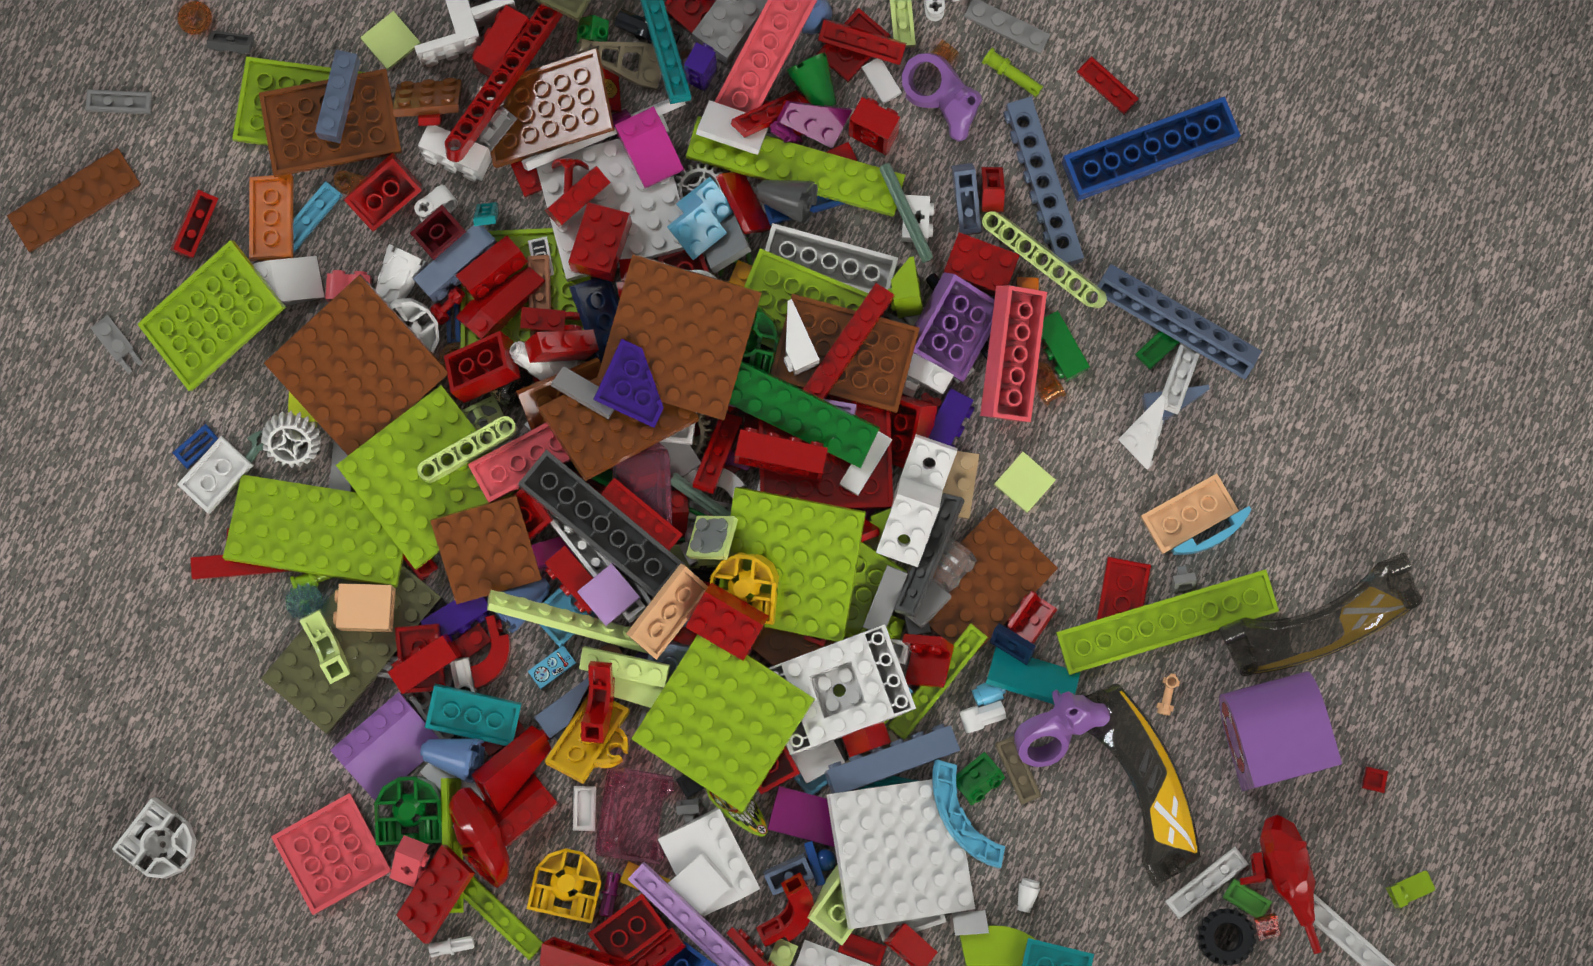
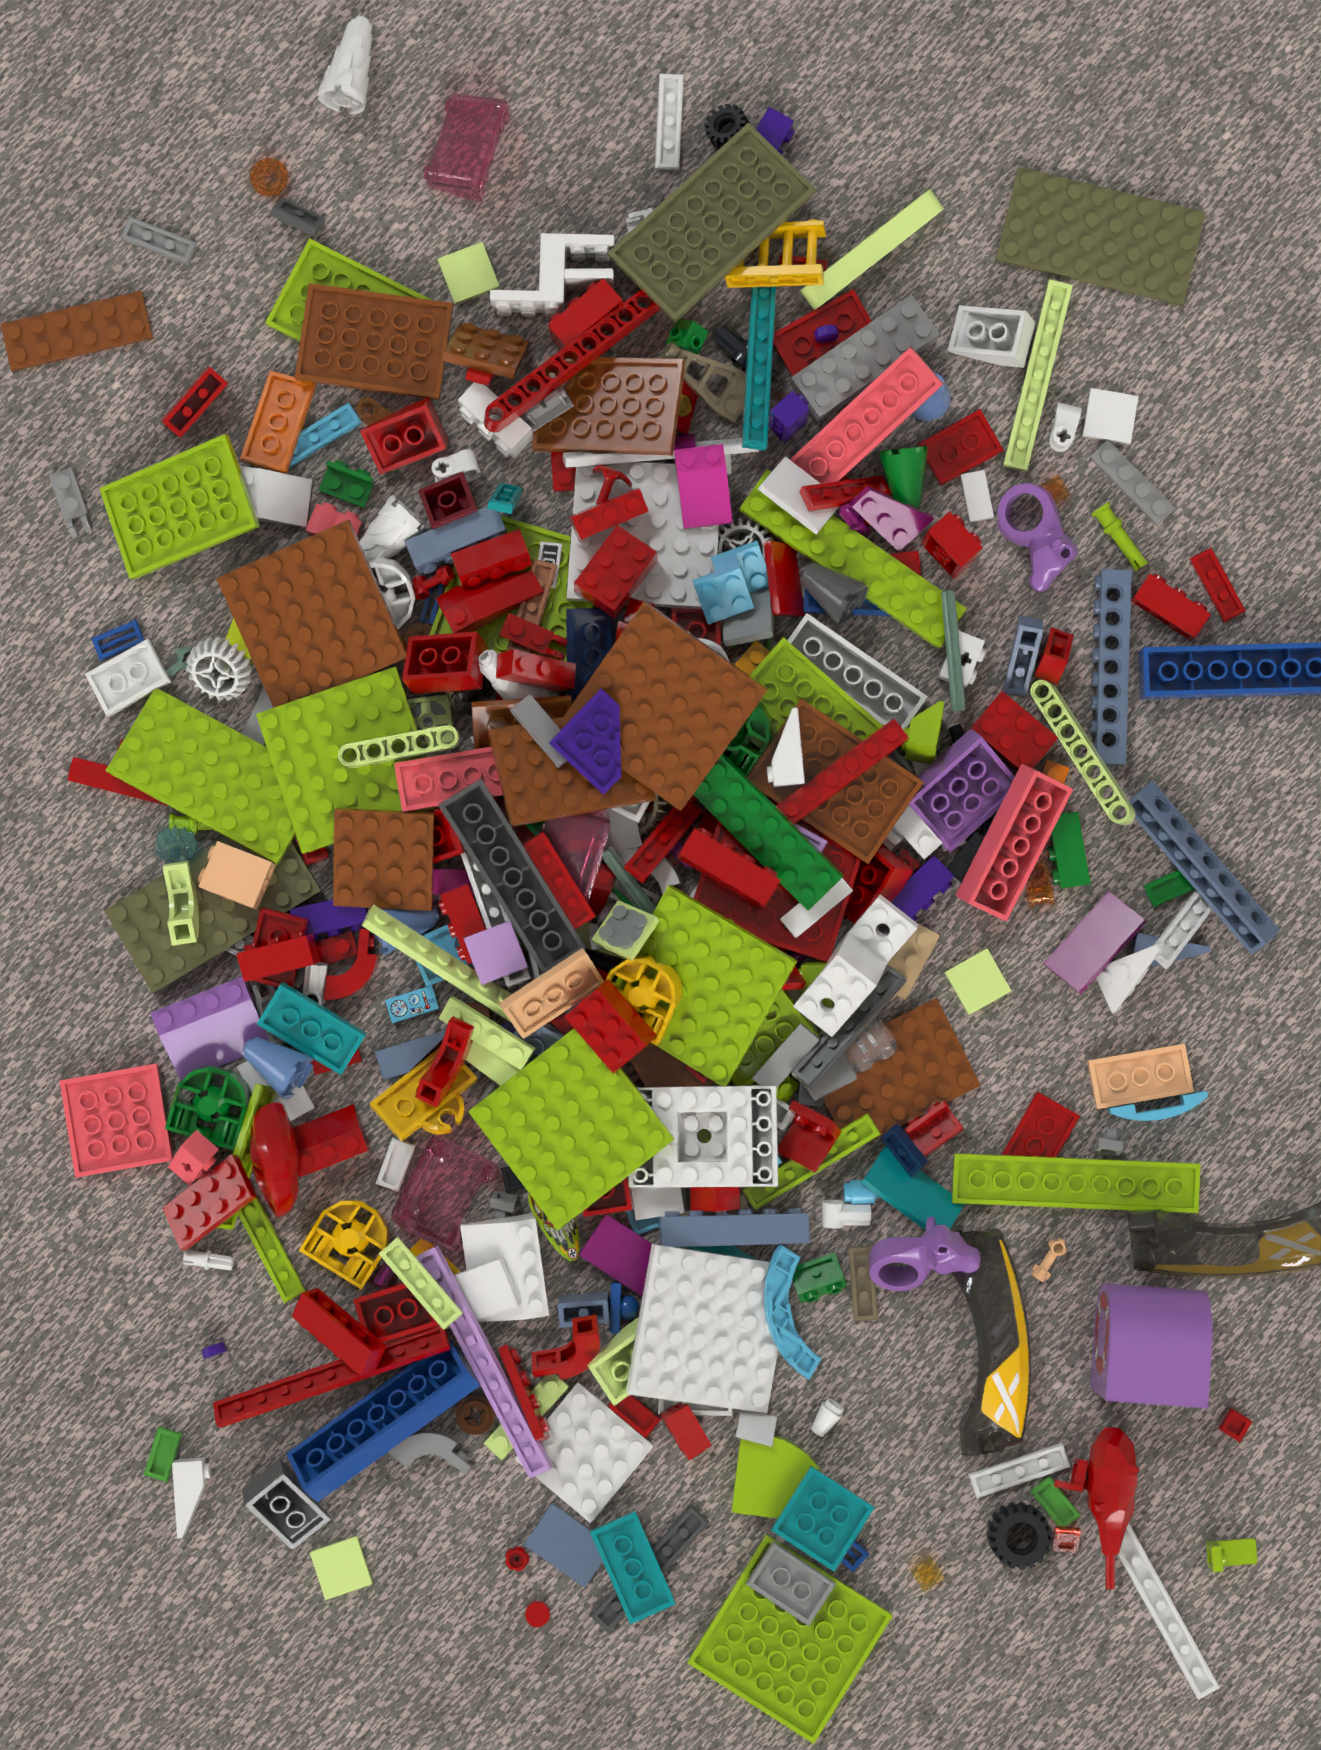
camera: 20 degrees right, 5 degrees up
(338, 96) = (390, 316): sand blue brick -> none
(347, 249) = (347, 484): none -> green bracket
(511, 767) = (333, 1096): red slope -> none
(641, 897) = (421, 1283): none -> yellowish green plate
(862, 41) = (971, 448): red plate -> none
(976, 385) = (964, 858): none -> black plate
(1075, 115) = (1171, 606): none -> red brick
(1111, 415) = (1094, 942): none -> tile

